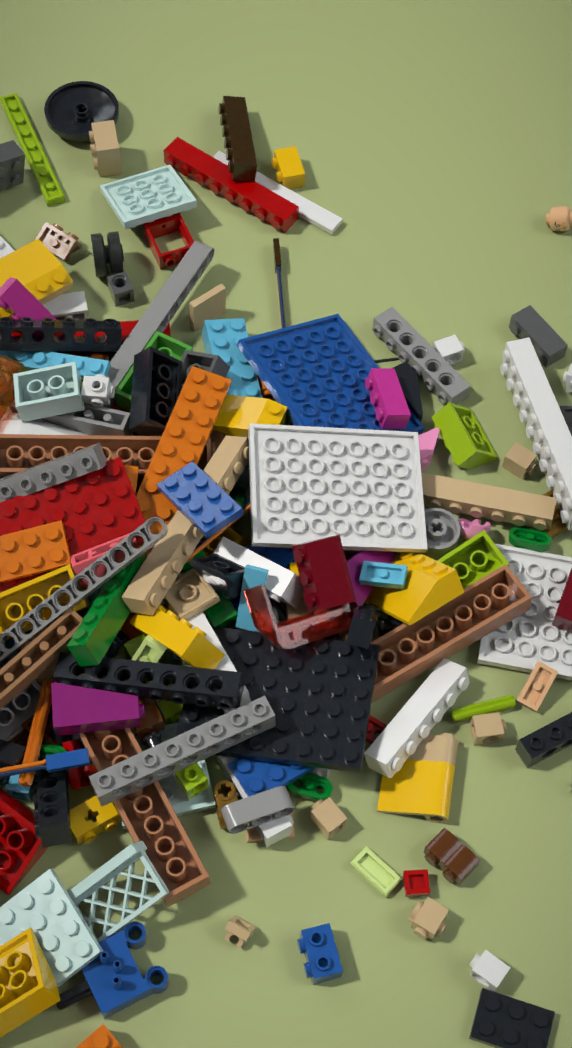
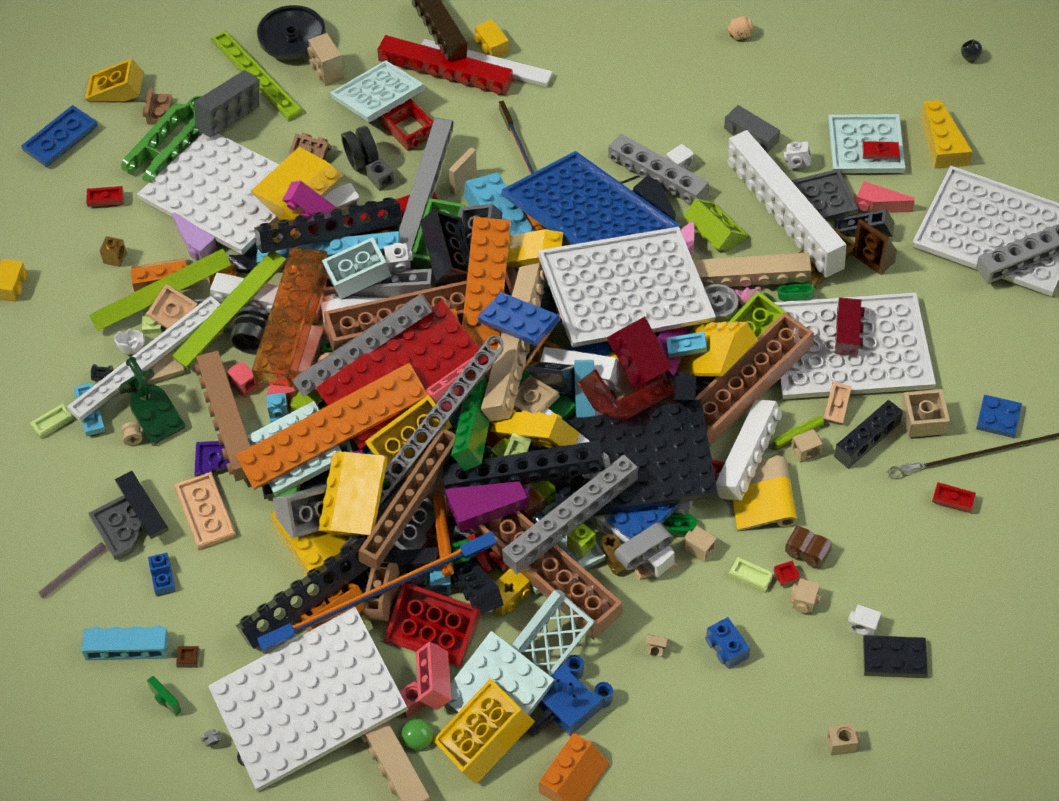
camera: 10 degrees left, 5 degrees down
(387, 398) = (643, 207): dark pink brick -> none
(520, 461) = (768, 233): tan brick -> none

